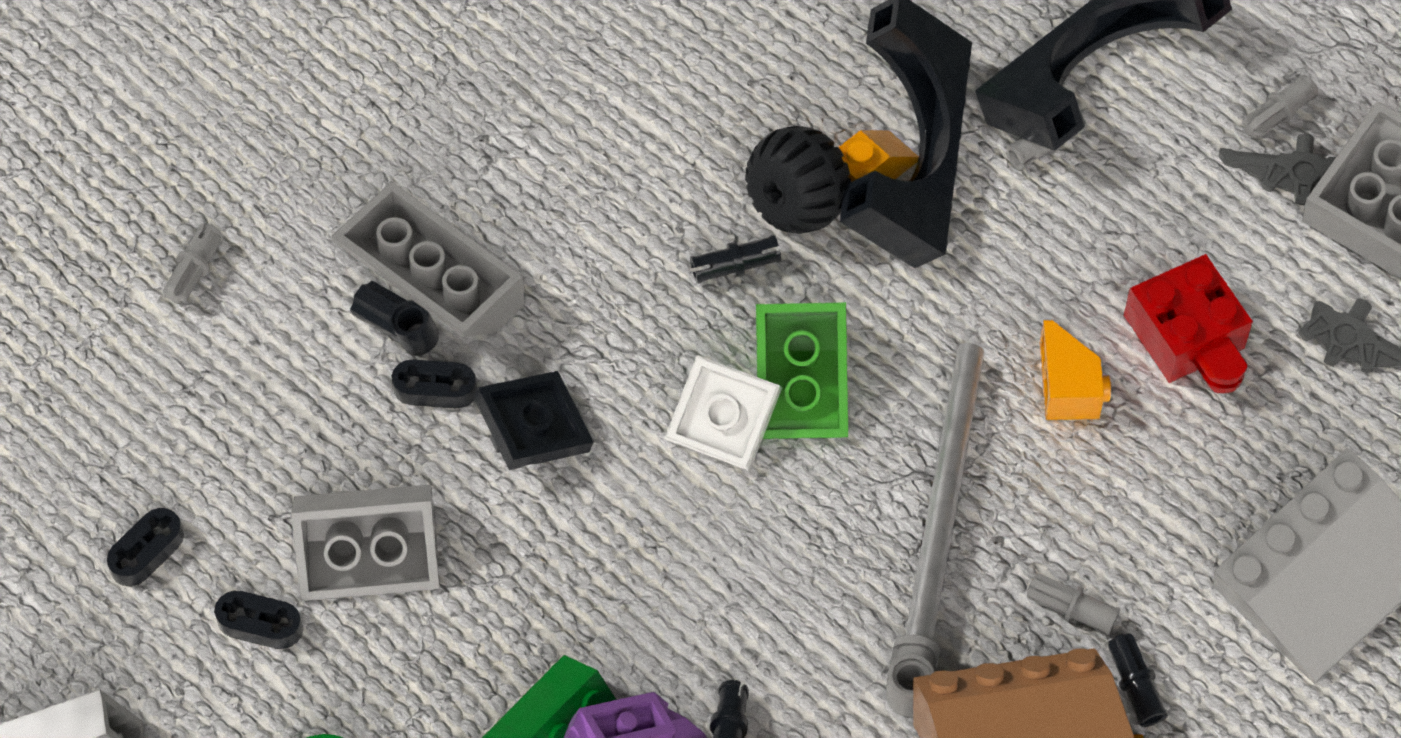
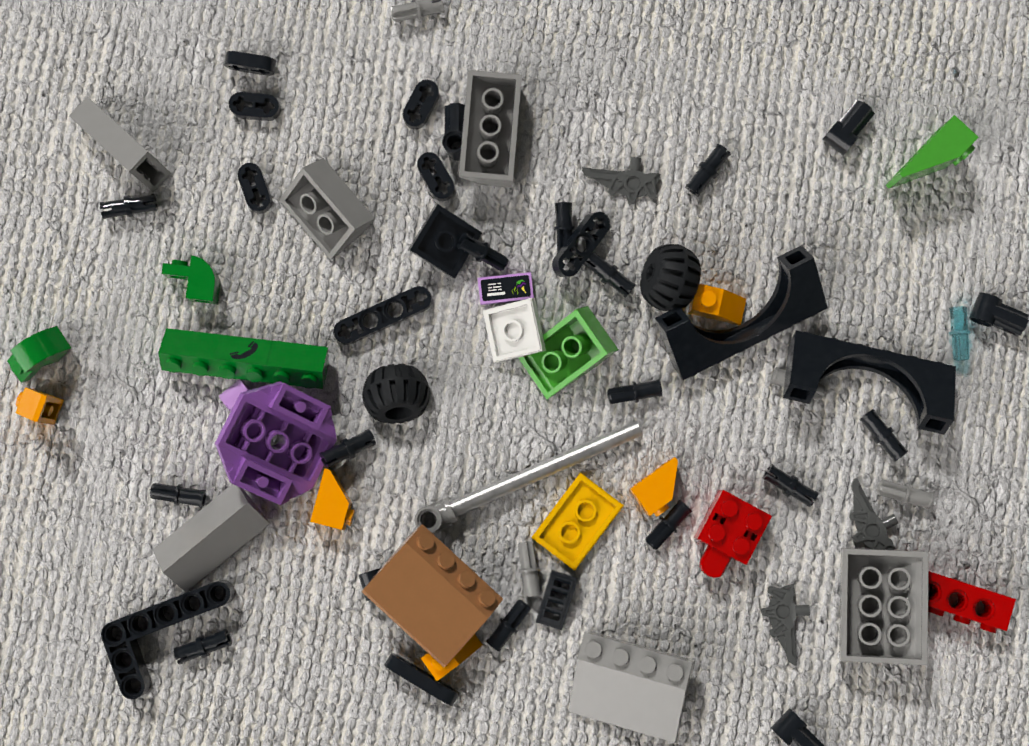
camera: 55 degrees right, 25 degrees up
(82, 510) = (250, 63): none -> black beam
(313, 345) = (426, 107): none -> black beam
(571, 568) = (381, 312): none -> black beam
(584, 384) = (482, 252): none -> black axle
(630, 169) = (629, 183): none -> dark grey piece
(630, 274) = (563, 222): none -> black axle
(654, 395) = (505, 288): none -> black tile
(666, 278) = (592, 240): none -> black beam
(687, 70) = (708, 170): none -> black pin
(697, 615) = (396, 393): none -> black wheel
(918, 325) = (634, 392): none -> black axle
(1047, 506) = (577, 521): none -> yellow tile
(1116, 591) = (565, 578): none -> black slope
(1130, 395) = (668, 525): none -> black axle
(1177, 224) = (790, 485): none -> black pin
(1184, 85) = (883, 435): none -> black pin

